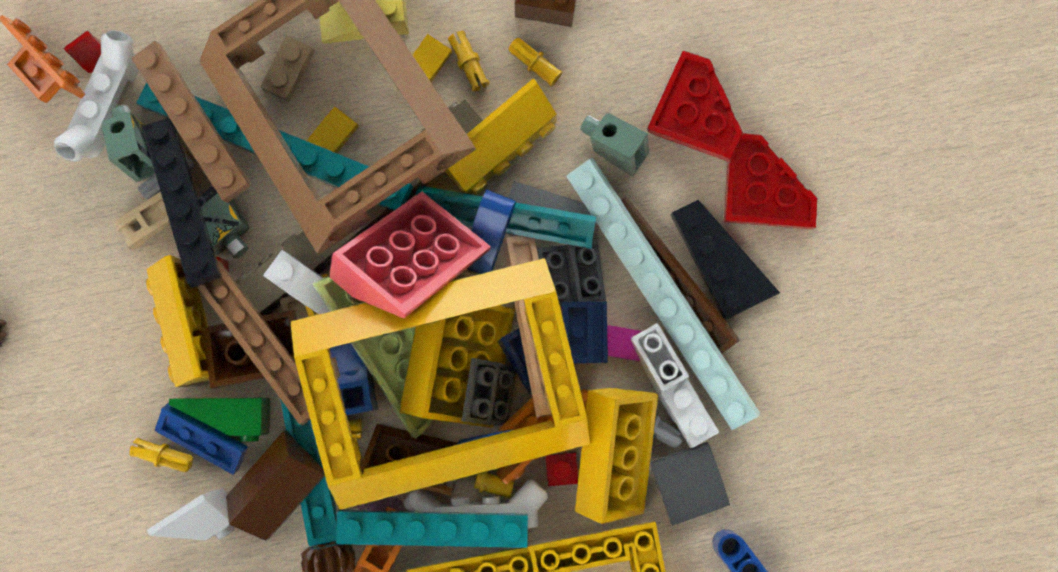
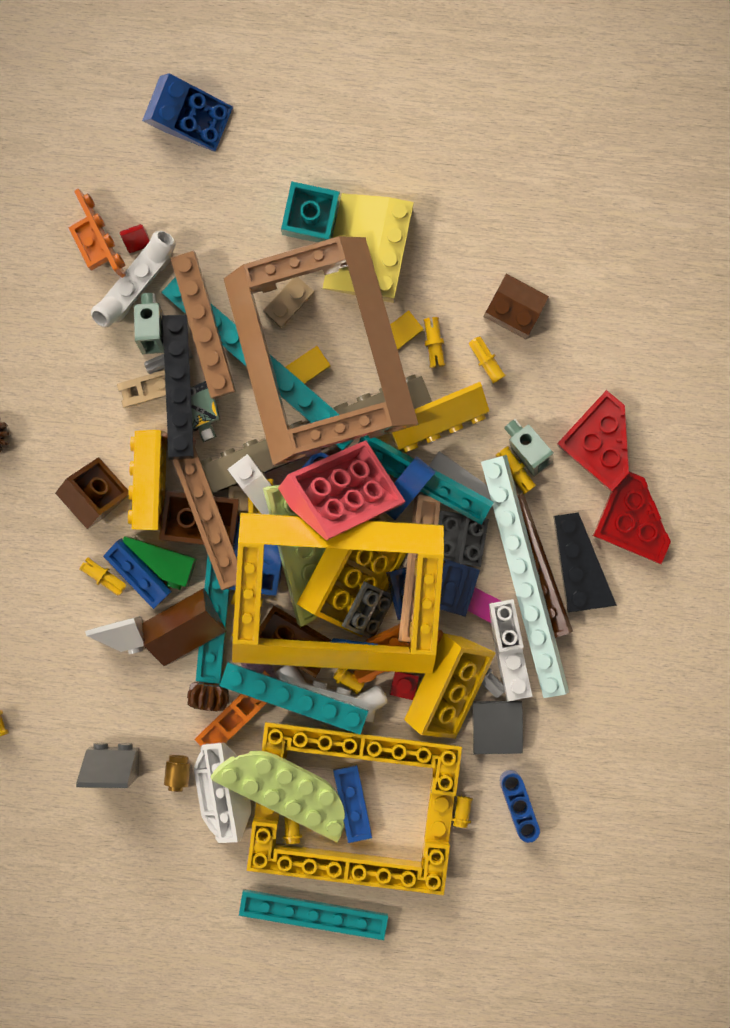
camera: 15 degrees right, 5 degrees up
(118, 359) = (92, 492): none -> reddish brown slope
(616, 178) = (518, 472): none -> yellow pin

